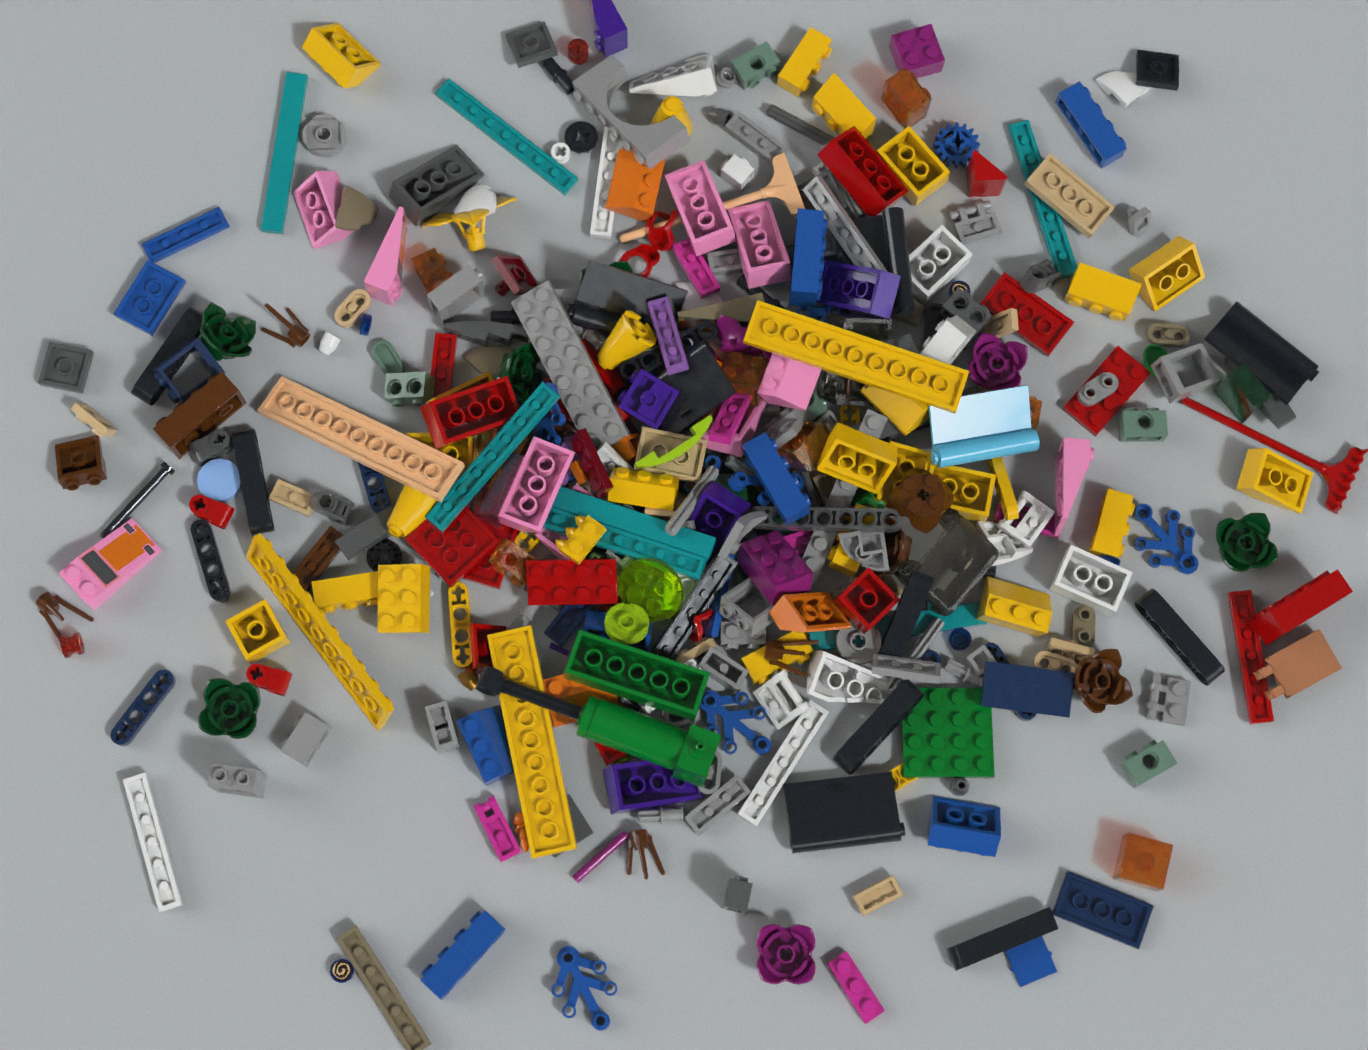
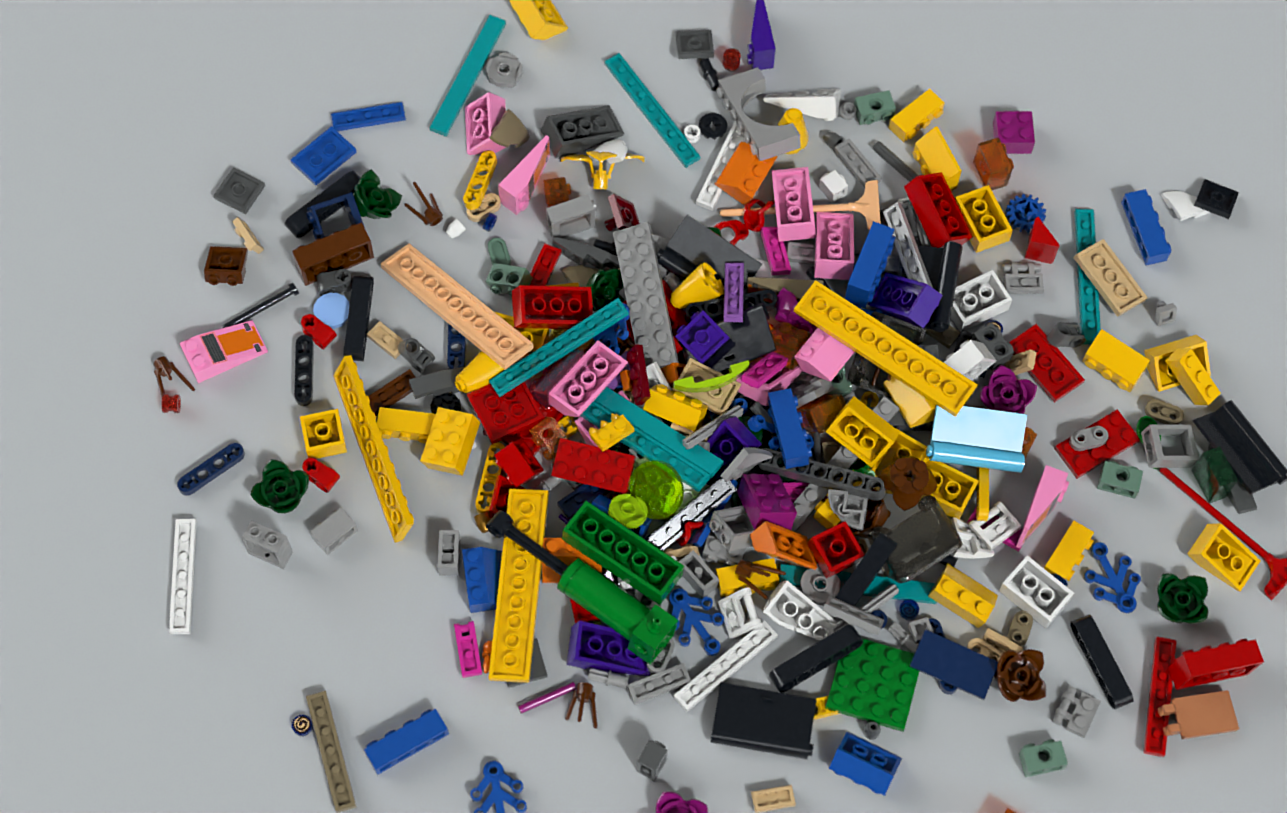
camera: 20 degrees right, 10 degrees down
(339, 277) = (477, 179): none -> yellow beam
(488, 602) = (518, 463): none -> red brick
(1190, 287) = (1193, 376): none -> yellow brick

